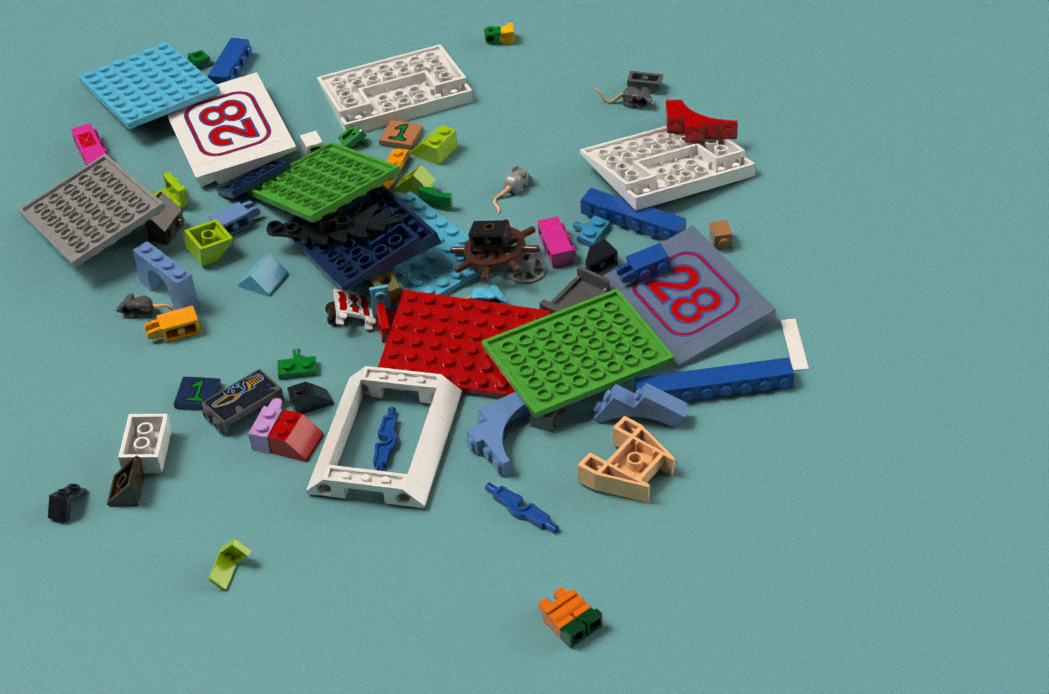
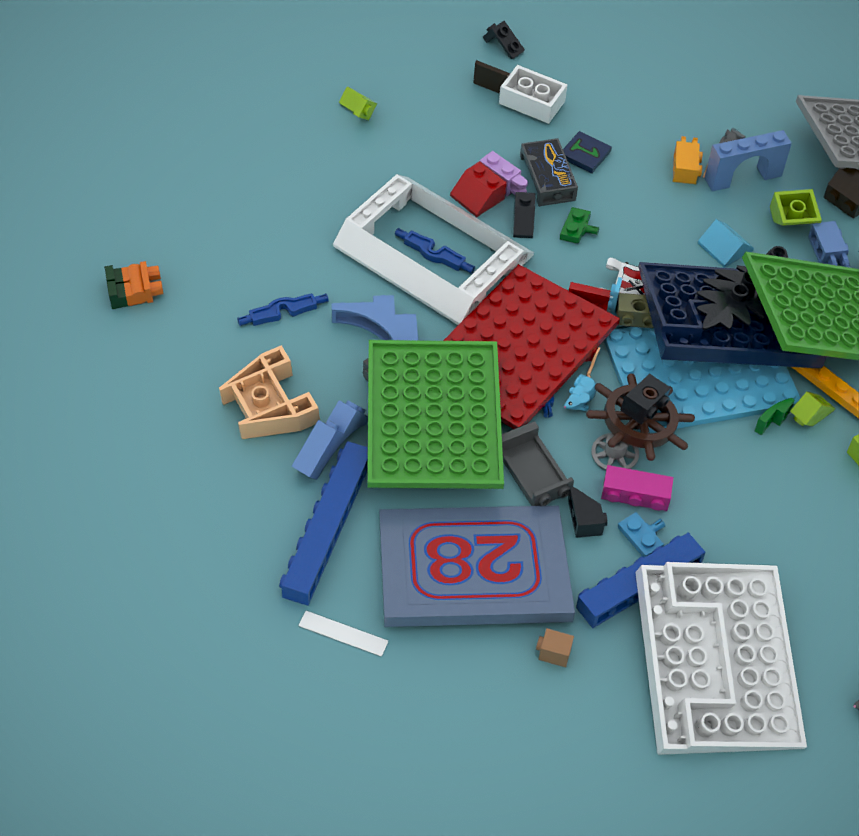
camera: 110 degrees right, 10 degrees up
(514, 183) = (767, 499): light grey animal -> none
(644, 264) = (536, 539): blue hinge -> none
(697, 126) = (784, 706): red arch -> none

